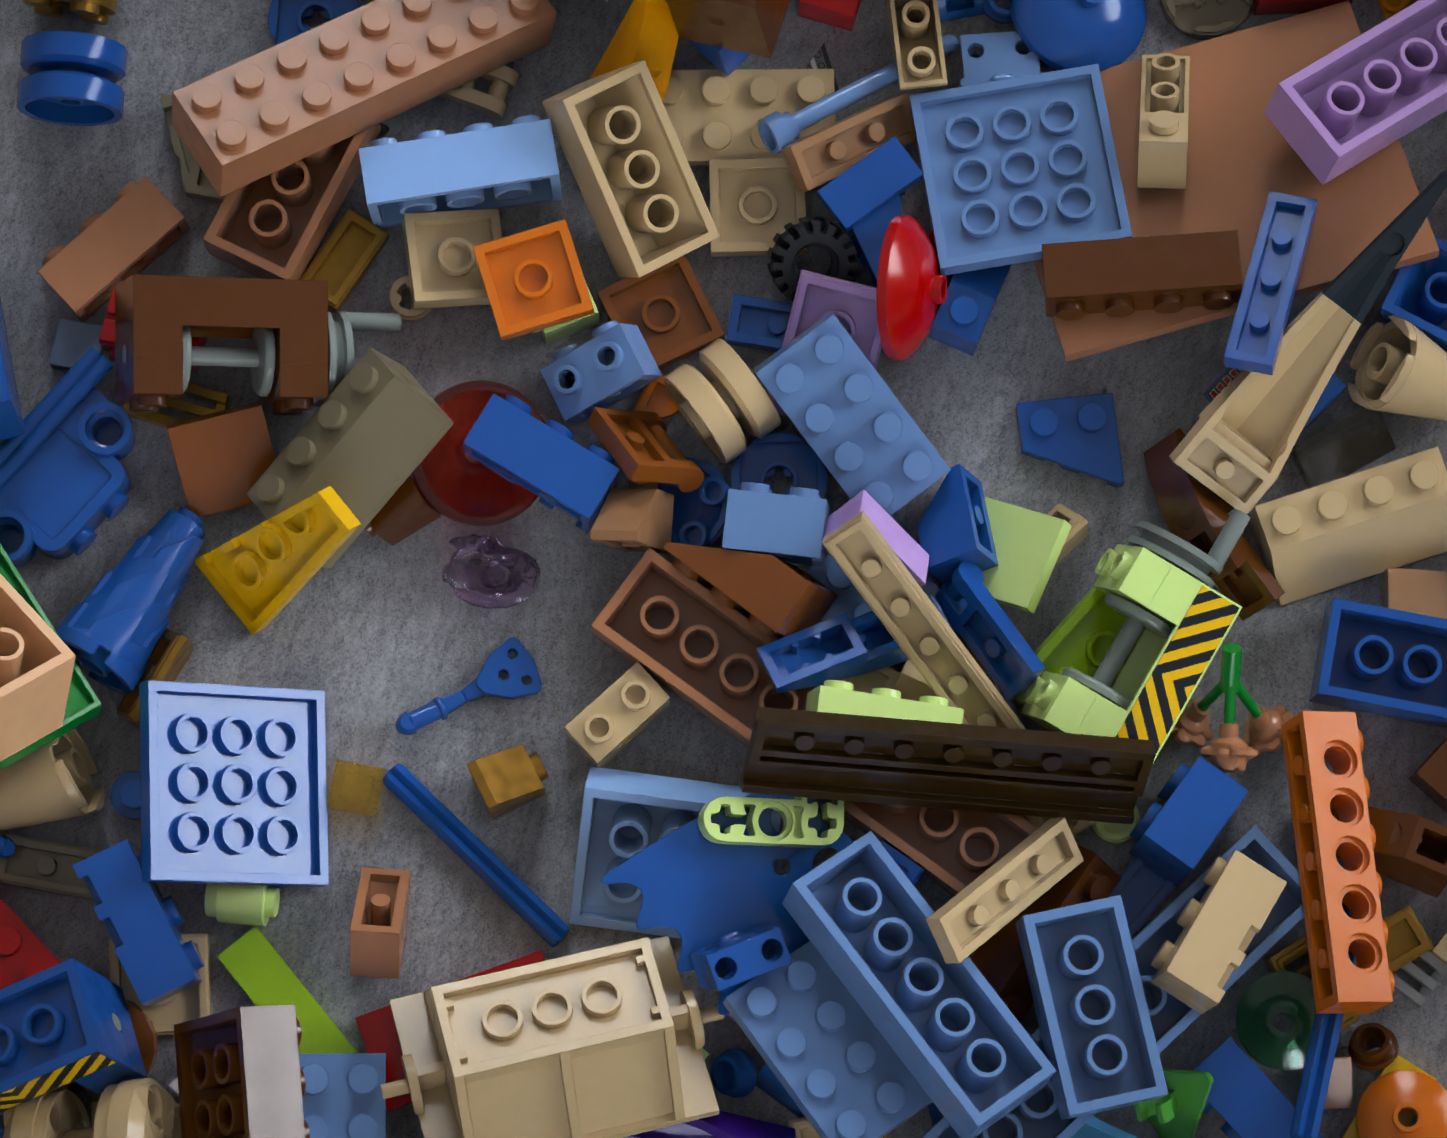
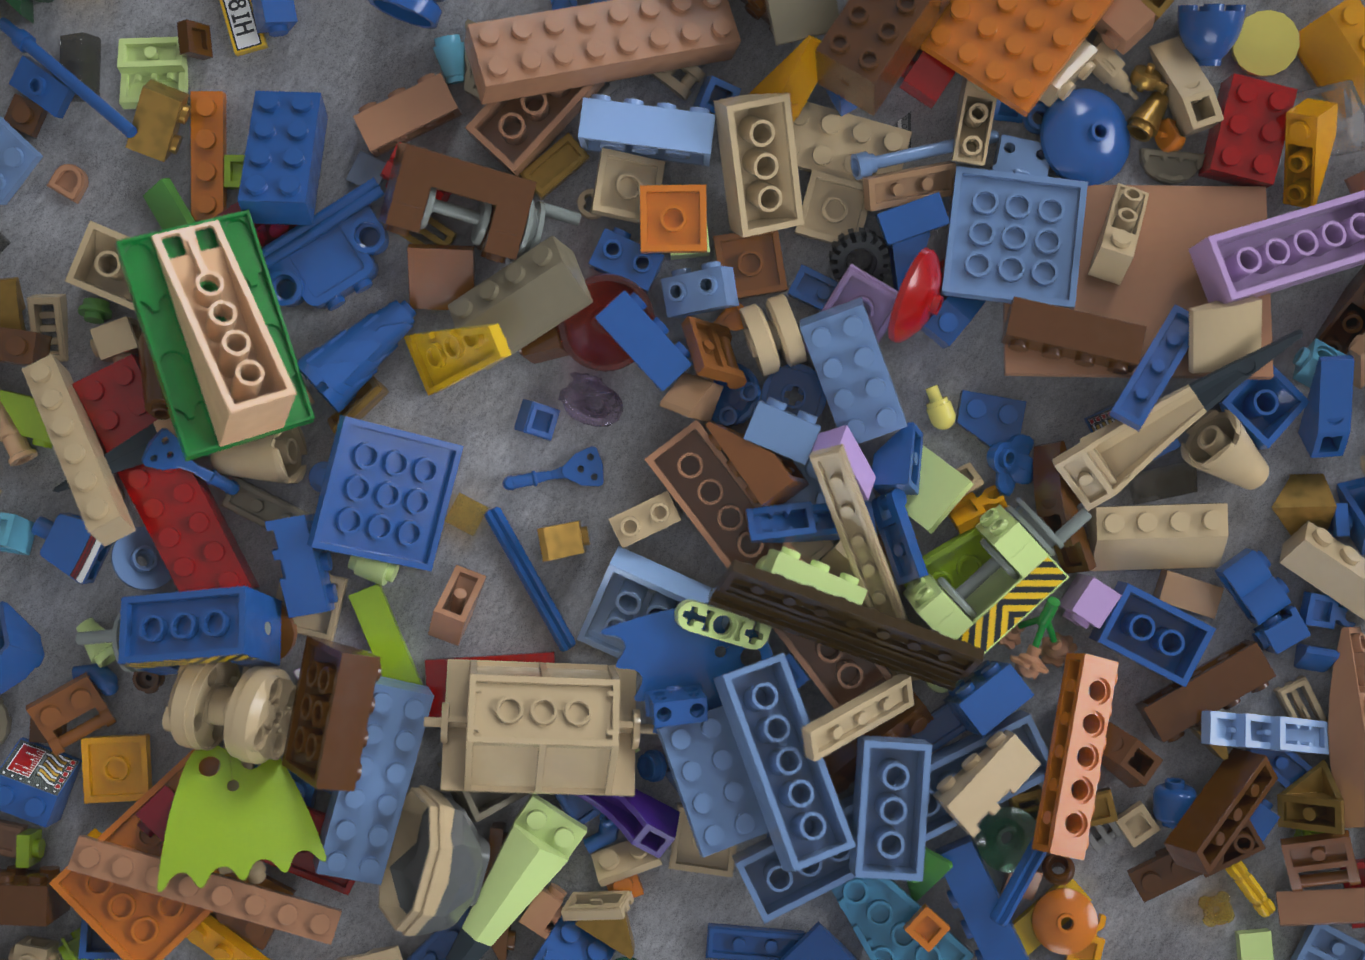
camera: 15 degrees right, 10 degrees up
(153, 153) = (451, 58): none -> medium azure cone
(419, 623) = (537, 419): none -> blue slope
(475, 354) = (623, 257): none -> blue brick
(538, 86) = (714, 89): none -> blue brick
(993, 439) = (939, 409): none -> light yellow cylinder
(1075, 570) = (971, 508): none -> light orange plate
(1118, 483) = (1011, 462): none -> blue plate
(1287, 643) = (1088, 601): none -> lavender brick
(1345, 208) = (1223, 333): none -> tan slope

